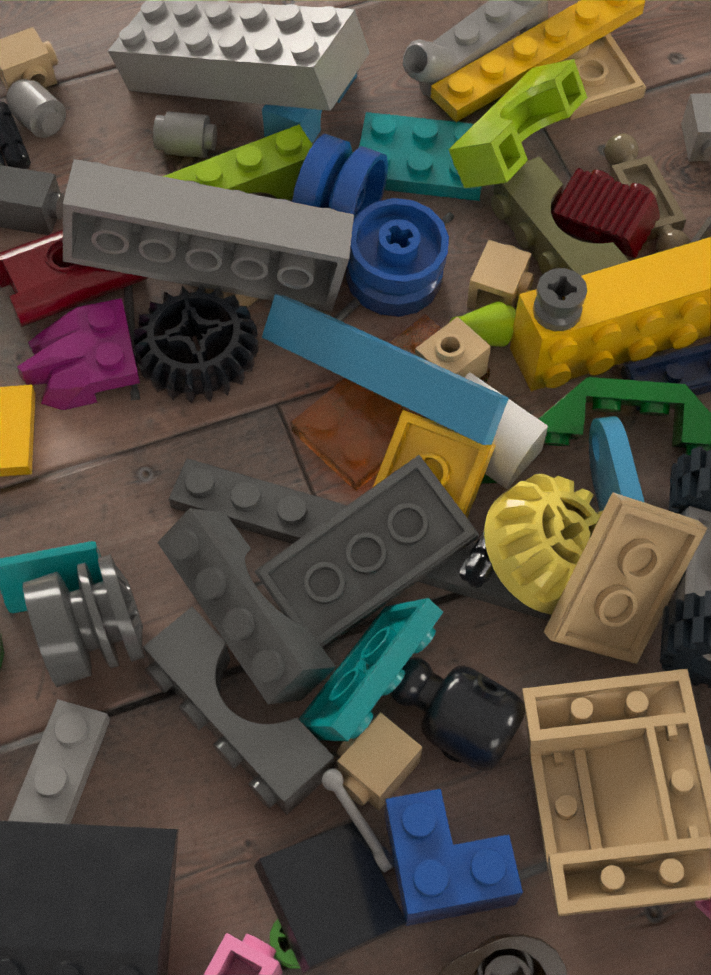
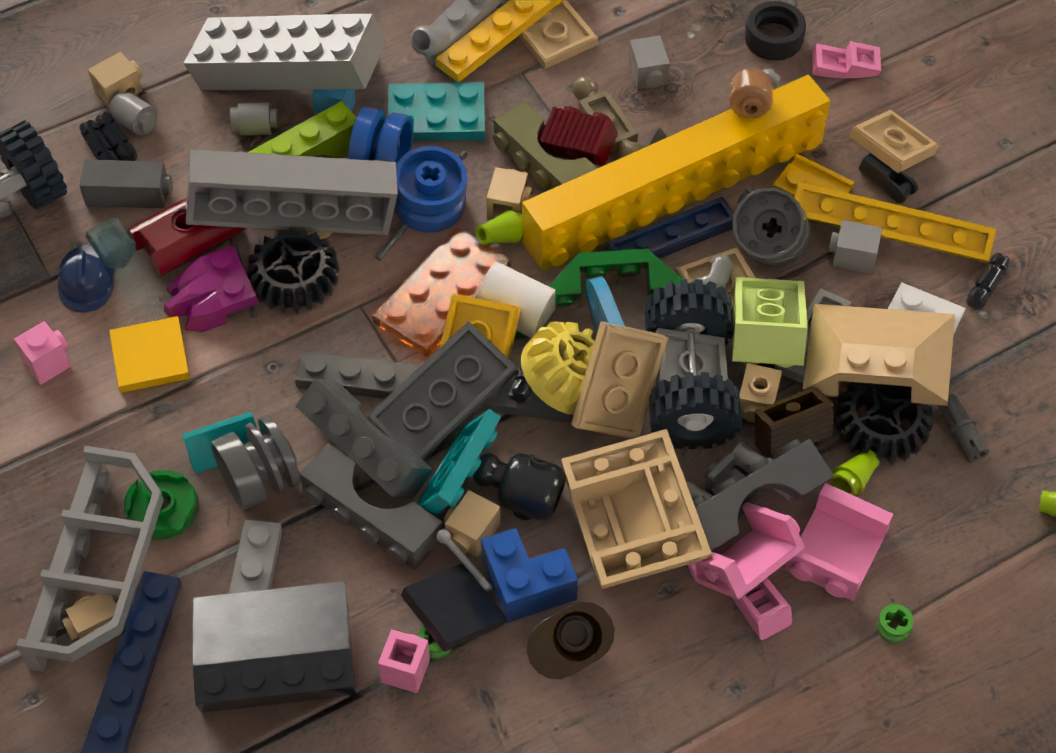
camera: 10 degrees left, 5 degrees down
(386, 369) = (432, 267): dark azure tile -> none
(456, 349) = (479, 253): tan brick -> none
(493, 146) = (488, 98): lime arch -> none
(548, 305) = (550, 201): dark grey wheel -> none

